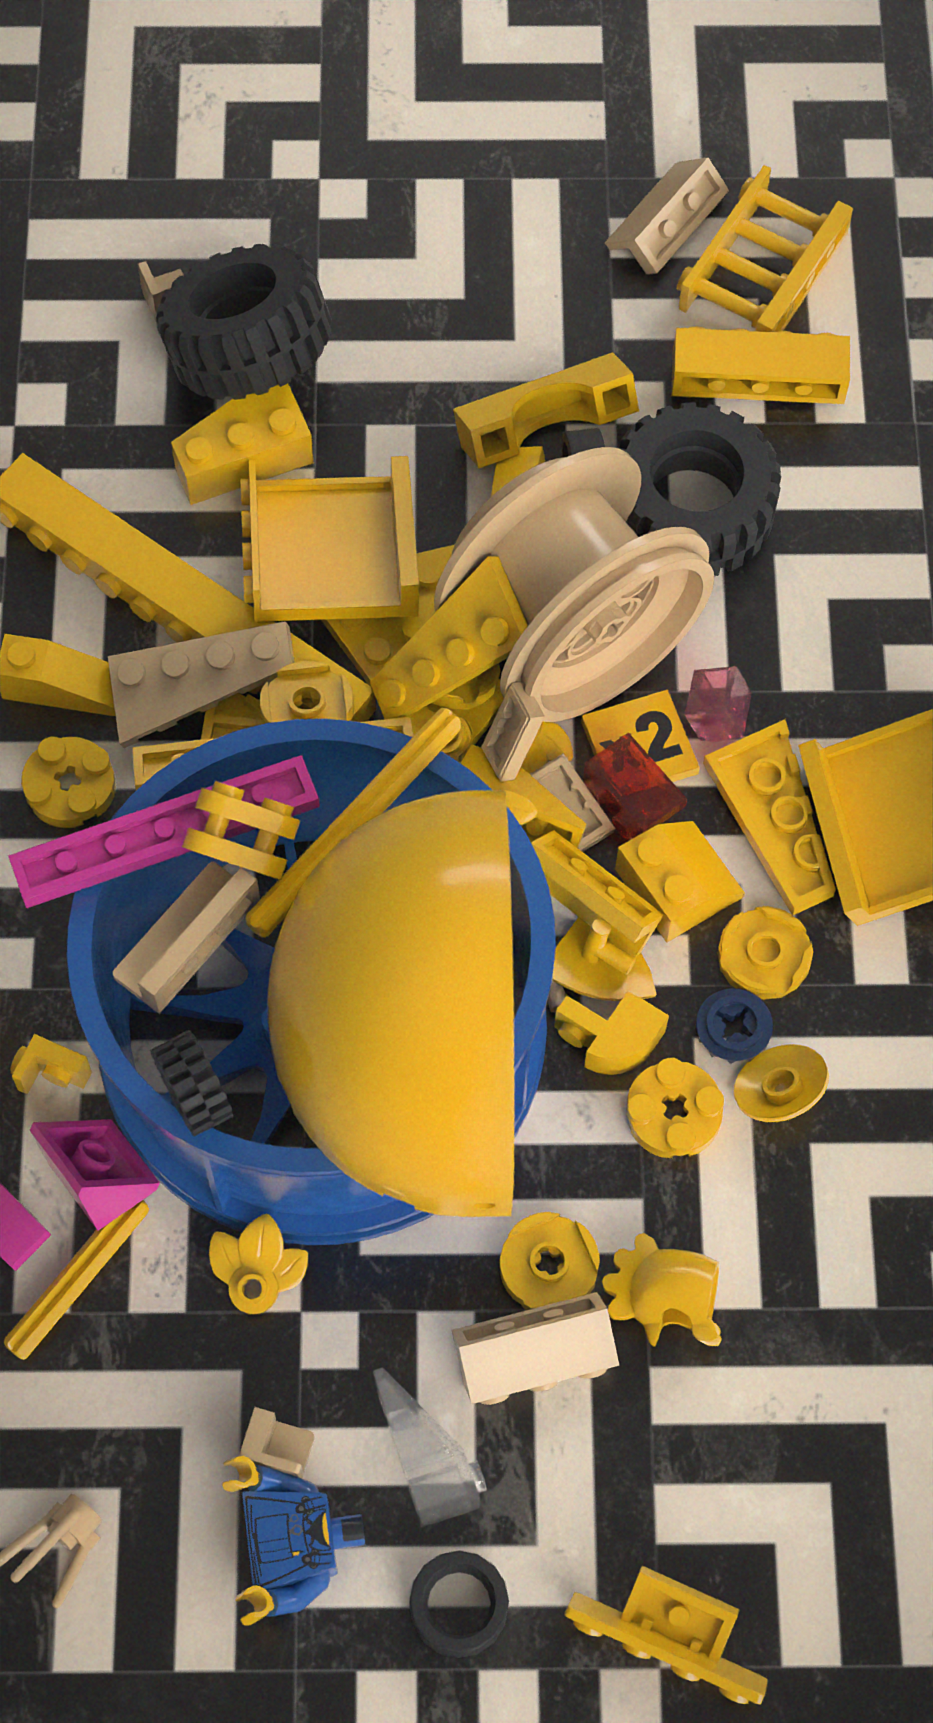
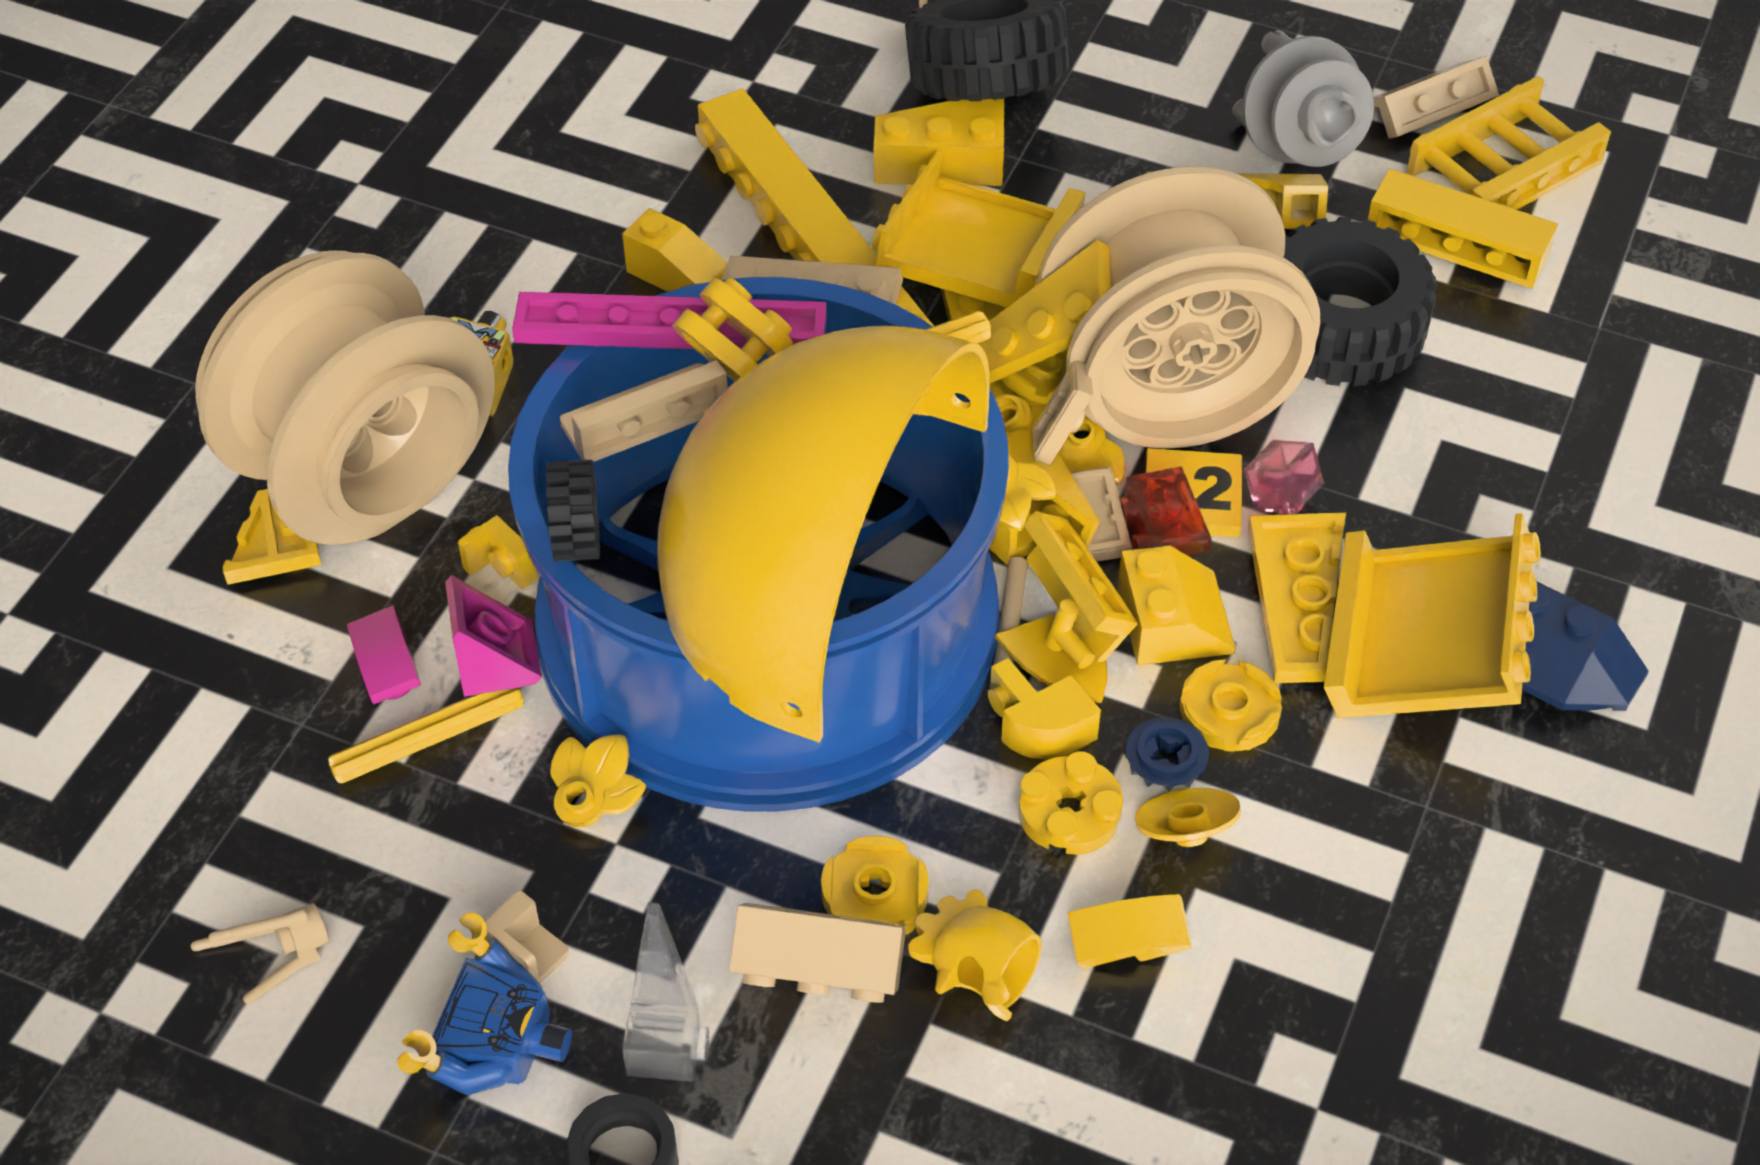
camera: 25 degrees right, 15 degrees down
(571, 279) = (1305, 101): none -> light grey piece
(779, 1214) = (1129, 928): none -> yellow slope

